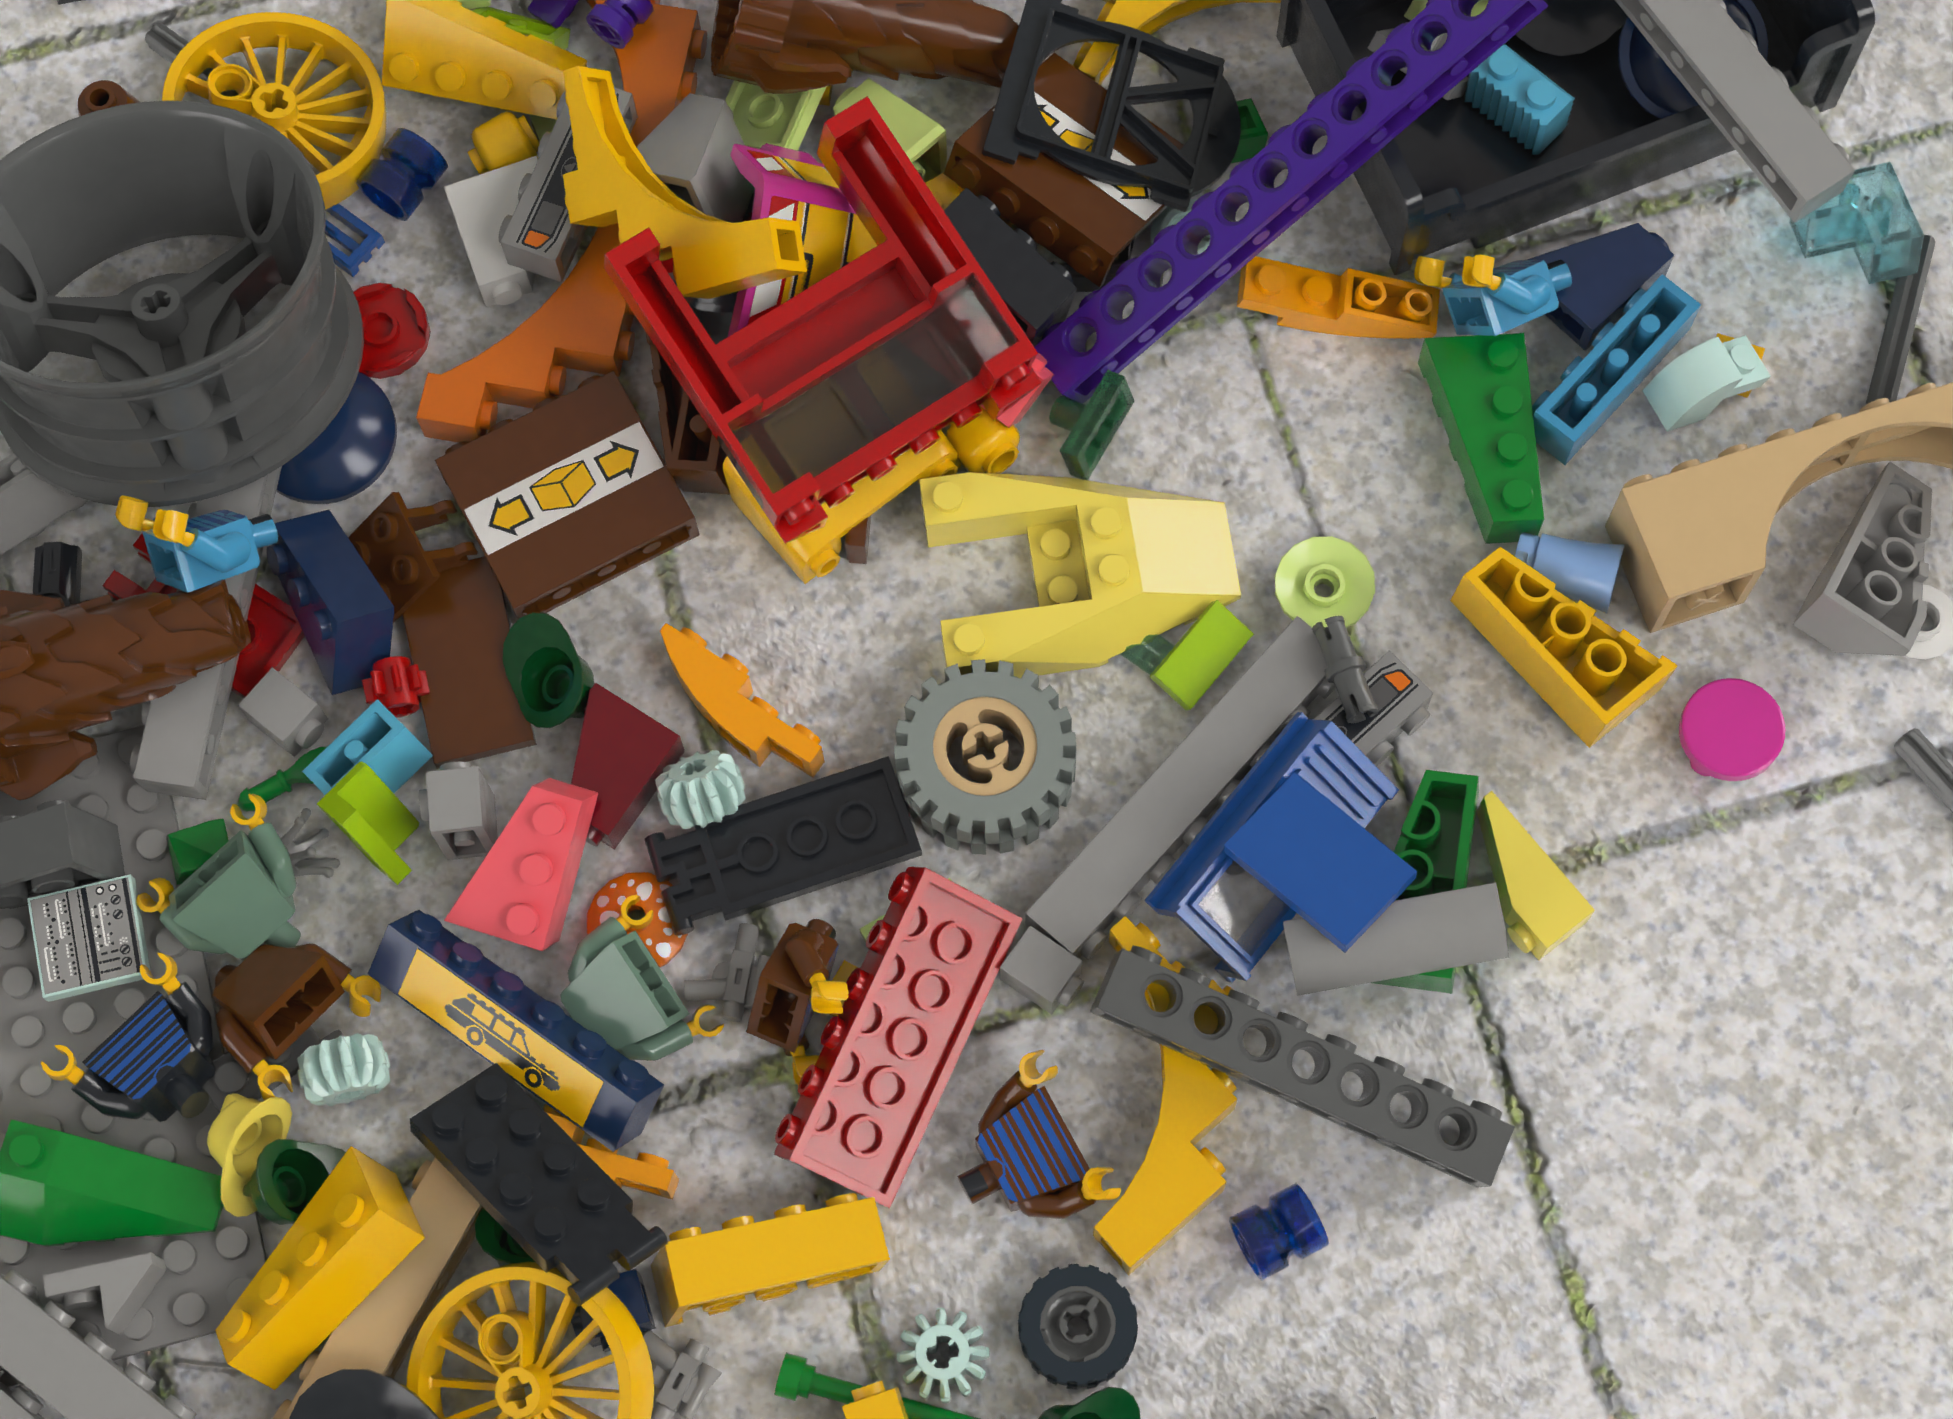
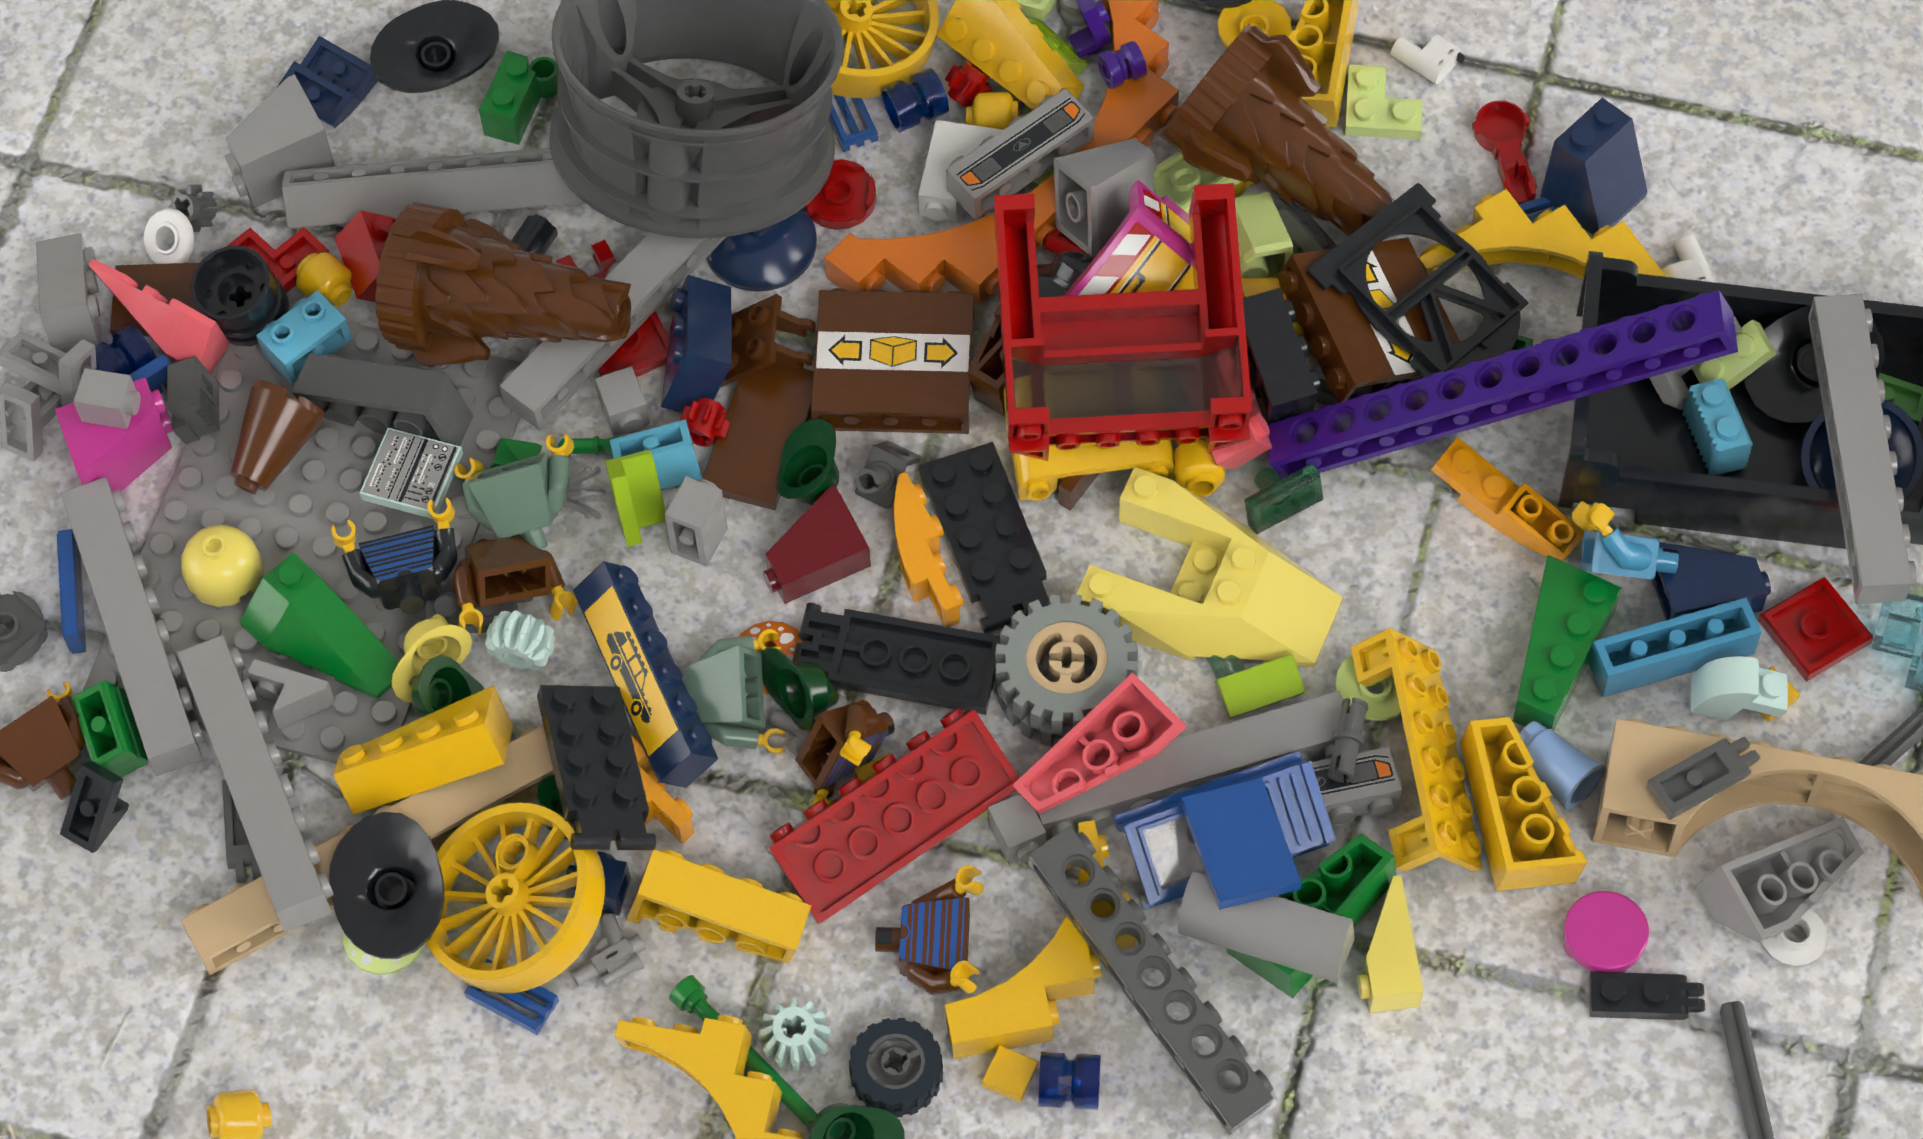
camera: 30 degrees right, 10 degrees down
(197, 549) = (626, 258): dark azure torso -> none
(450, 124) = (966, 83): none -> red gear
(531, 868) = (718, 577): coral wedge -> none
(620, 188) = (1044, 167): yellow arch -> none
(636, 633) = (881, 472): none -> dark grey bracket
(700, 789) = (861, 590): light aqua gear -> none
(701, 947) = (797, 687): none -> dark green piece
(795, 644) = (986, 533): none -> black hinge
(937, 103) = (1302, 228): none -> dark grey hinge
(1096, 820) = (1108, 741): none -> coral wedge
(1204, 1258) = (1010, 1074): none -> yellow tile
(1506, 715) = (1447, 813): none -> yellow bracket
(1734, 266) = (1815, 628): none -> red tile
(1755, 508) = (1702, 776): none -> dark grey hinge
(1807, 778) = (1643, 996): none -> black hinge

